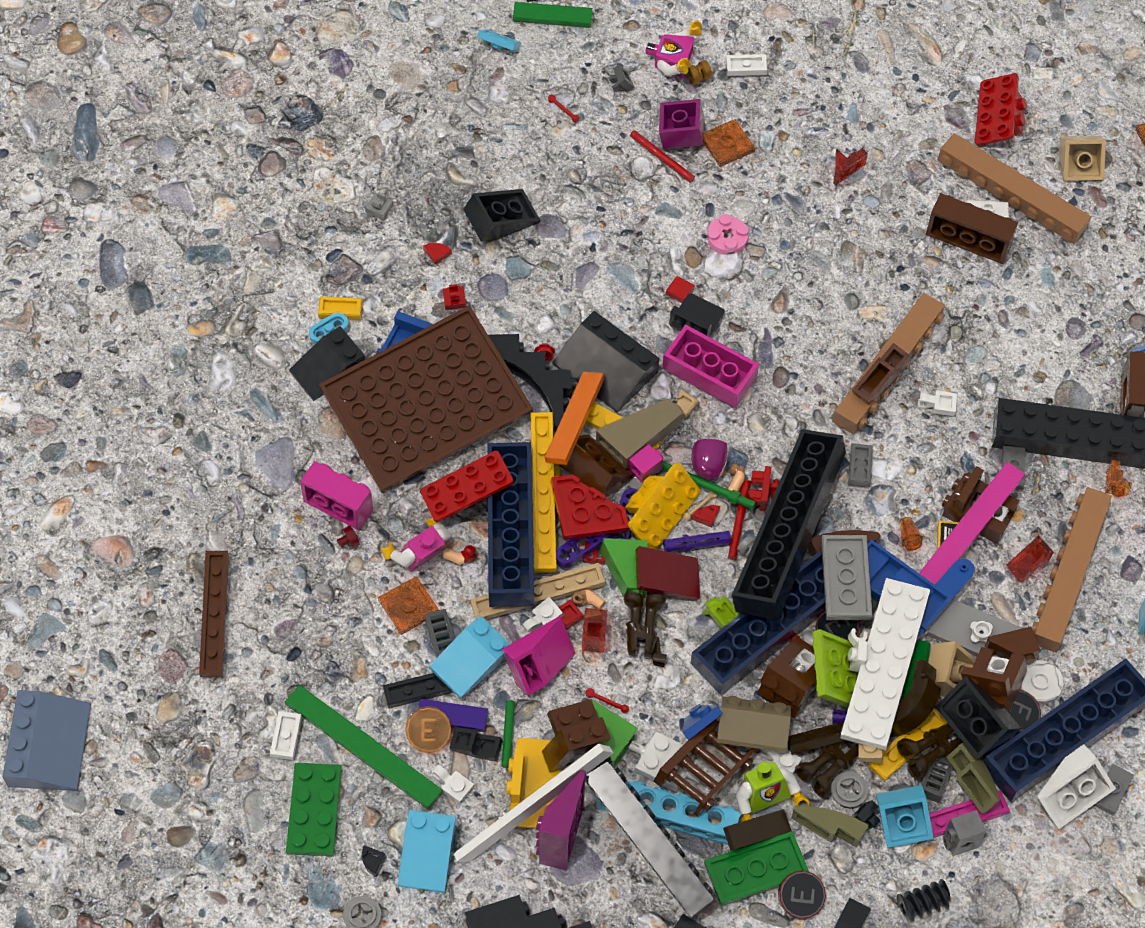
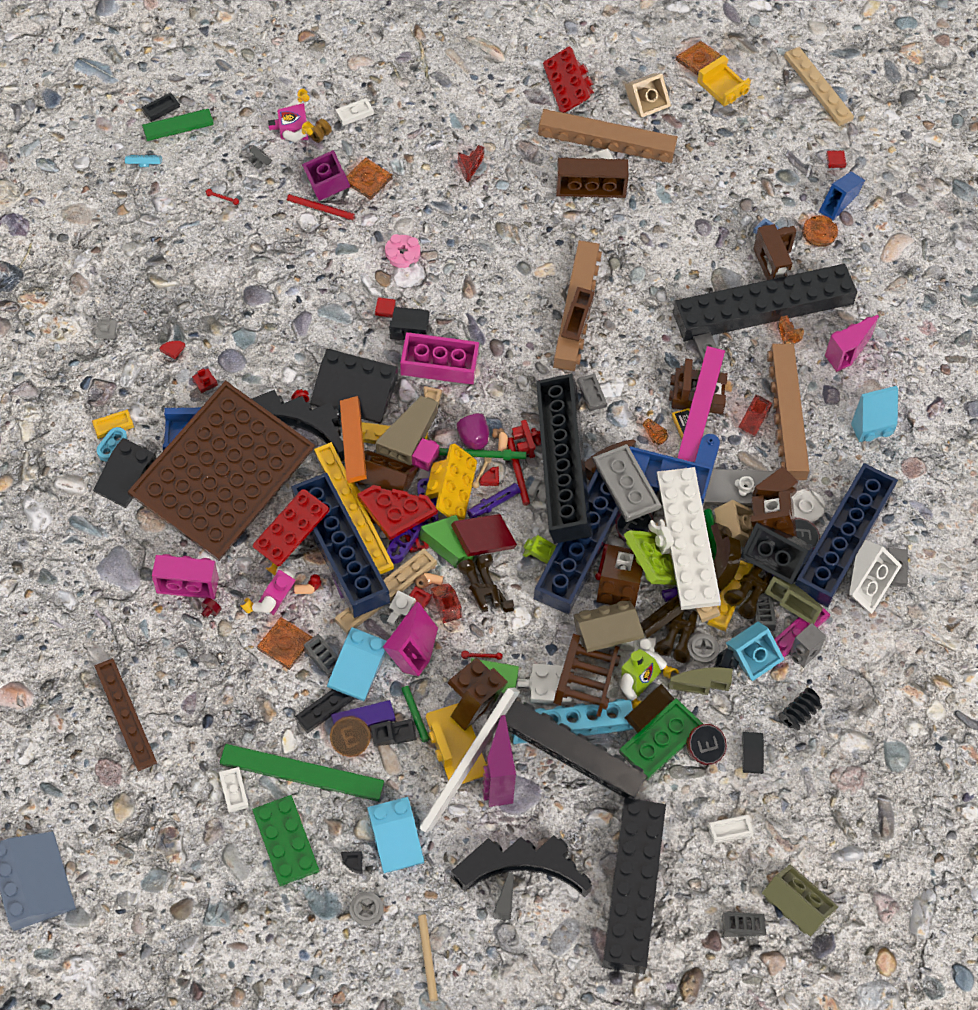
camera: 25 degrees left, 0 degrees up
(454, 785) = (392, 773): white plate -> none
(500, 213) = (211, 299): black slope -> none
(699, 718) = (565, 638): blue wing -> none
(942, 402) = (631, 320): white plate -> none

